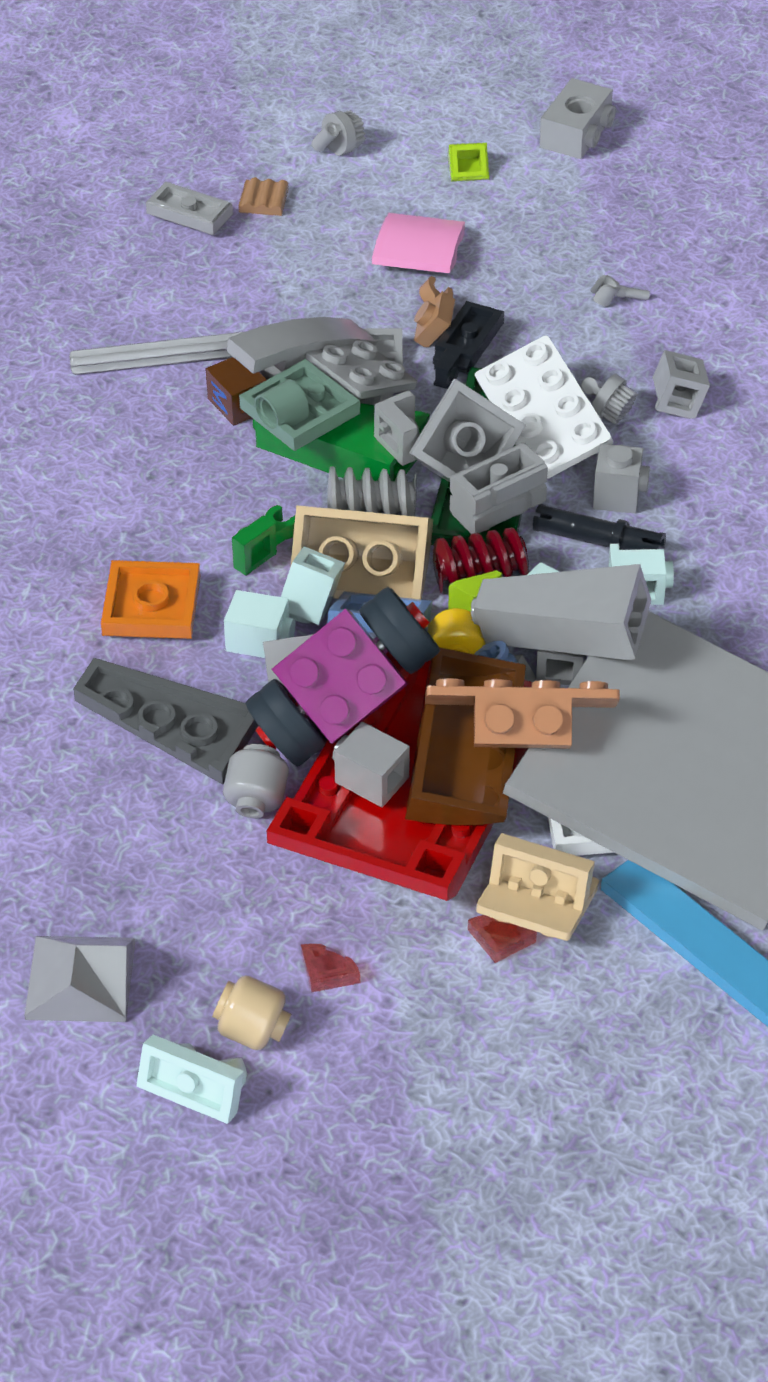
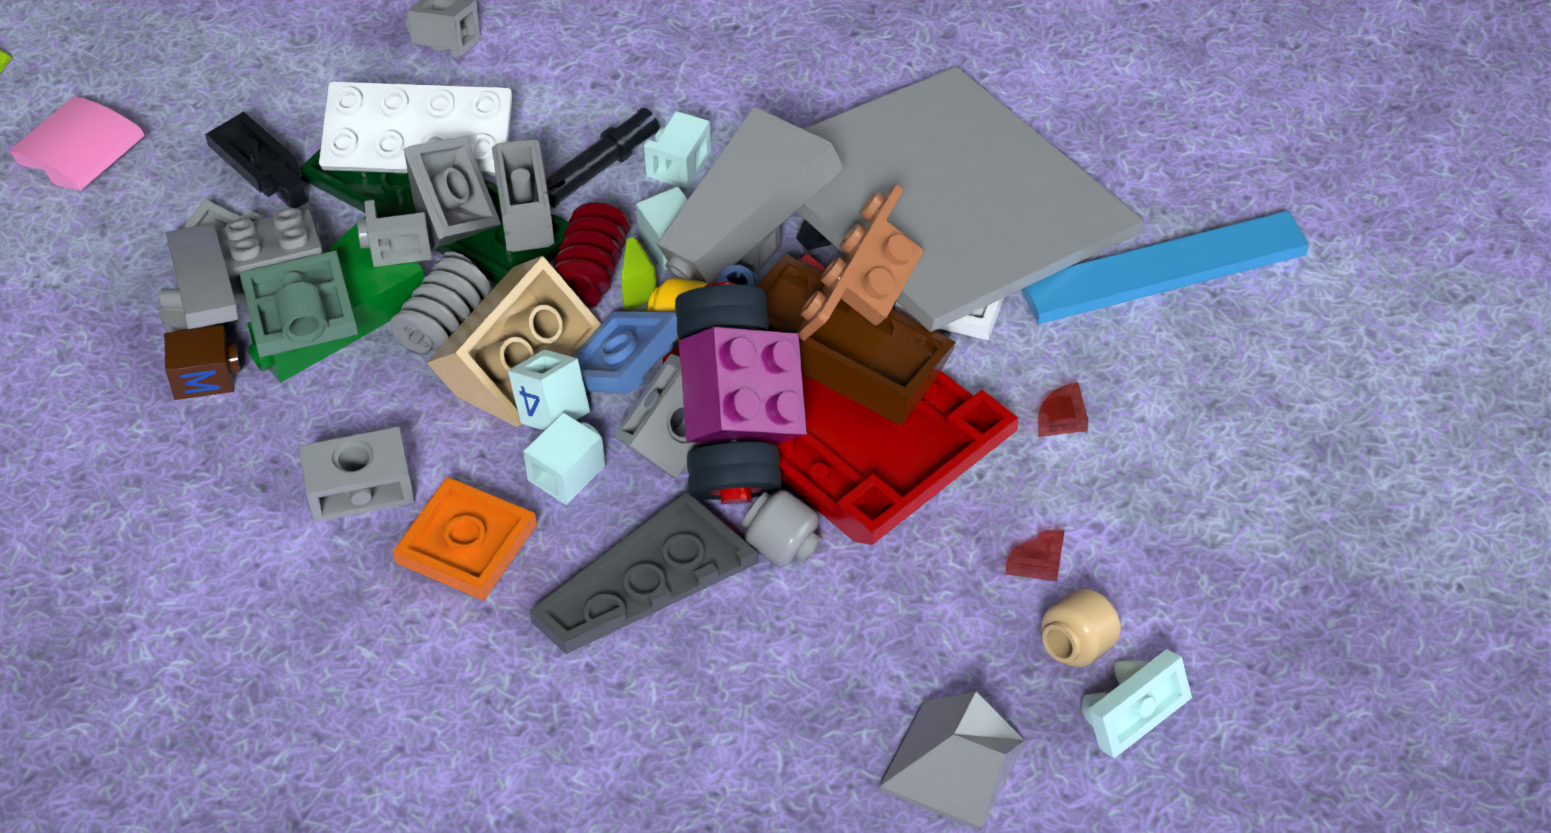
camera: 65 degrees left, 5 degrees up
(150, 354) = (92, 390): light grey axle -> none
(177, 514) = (356, 474): none -> light grey brick
(259, 540) = (444, 422): green plate -> none
(371, 763) = (837, 419): light grey brick -> none
(434, 314) = (208, 165): medium nougat plate -> none
(538, 887) = (1041, 357): tan bracket -> none
(607, 288) = (265, 27): light grey hand -> none
(611, 398) = (426, 71): light grey piece -> none
(619, 478) = (545, 112): light grey brick -> none

